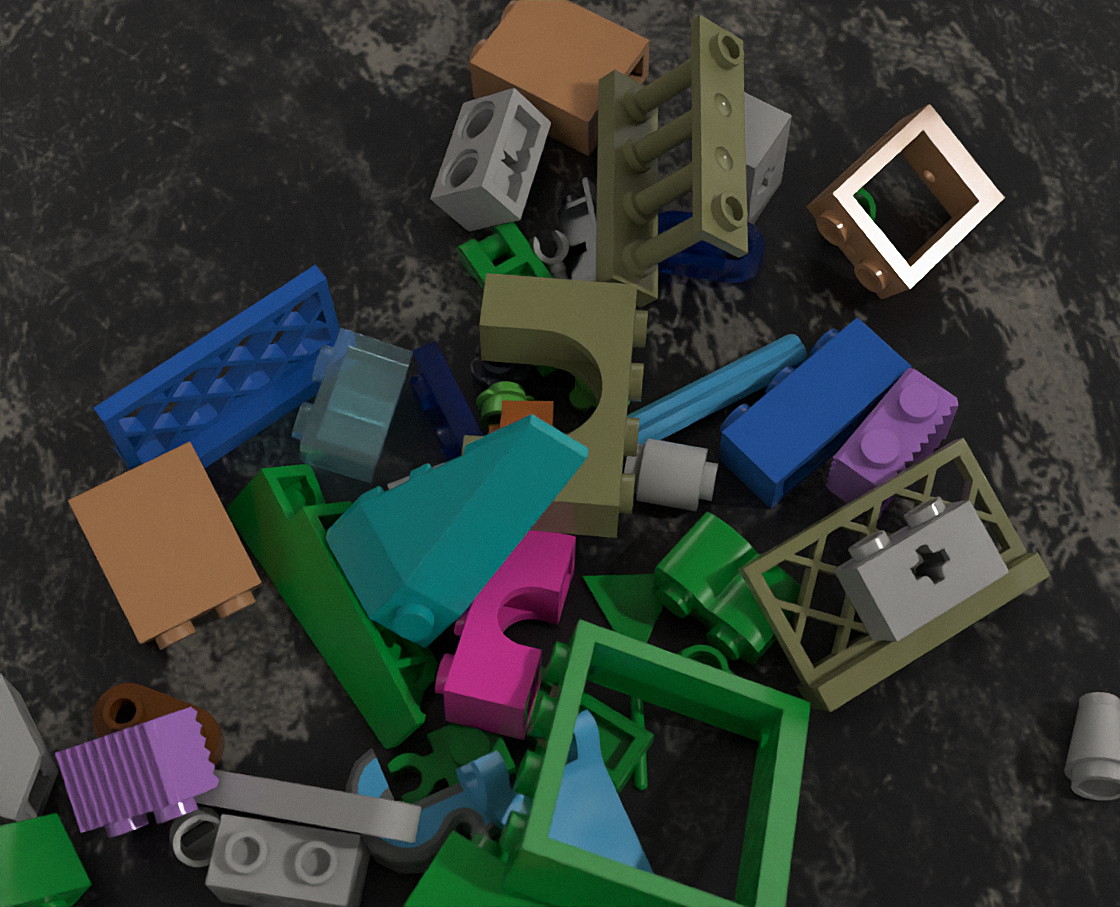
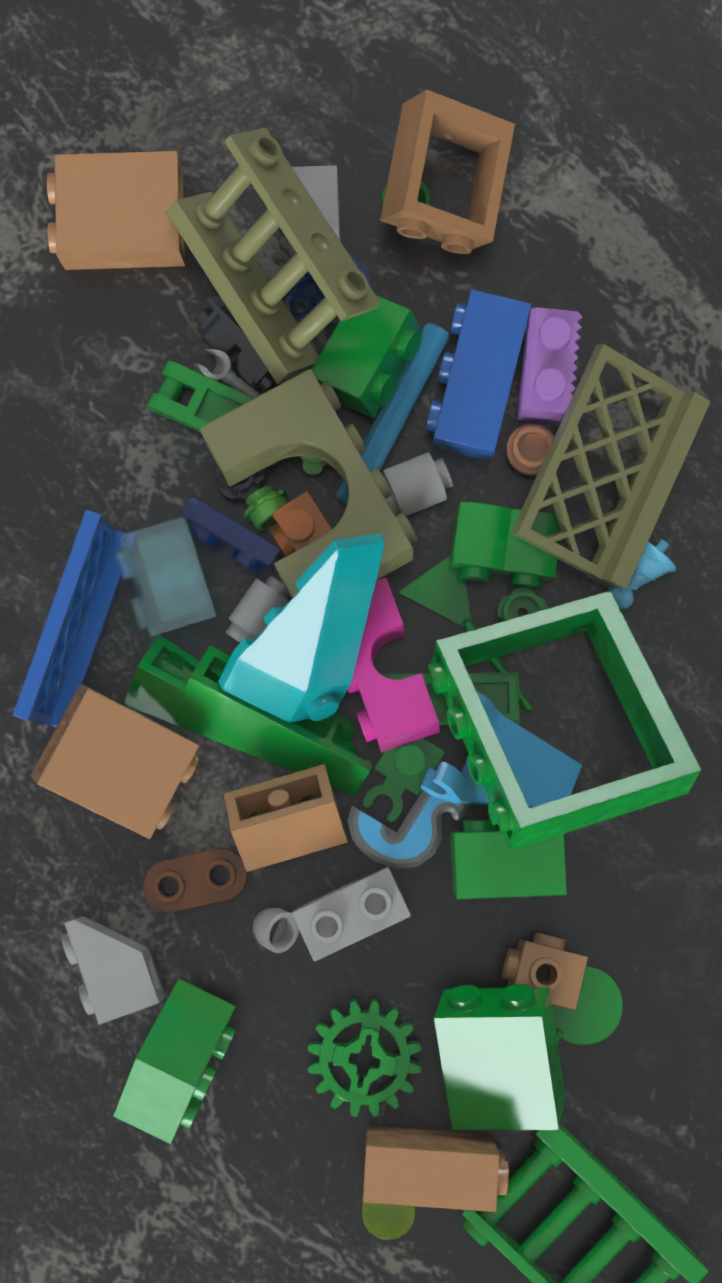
camera: 30 degrees left, 20 degrees up
(138, 772) = (216, 922): medium lavender brick -> none
(293, 717) = (285, 818): none -> medium nougat brick
(314, 806) = (337, 871): light grey beam -> none
(491, 160) = (126, 323): light grey brick -> none
(710, 319) = (369, 355): none -> green brick
(814, 506) = (528, 448): none -> nougat plate
(869, 712) = (650, 567): none -> medium azure piece
(955, 566) = (631, 459): light grey brick -> none

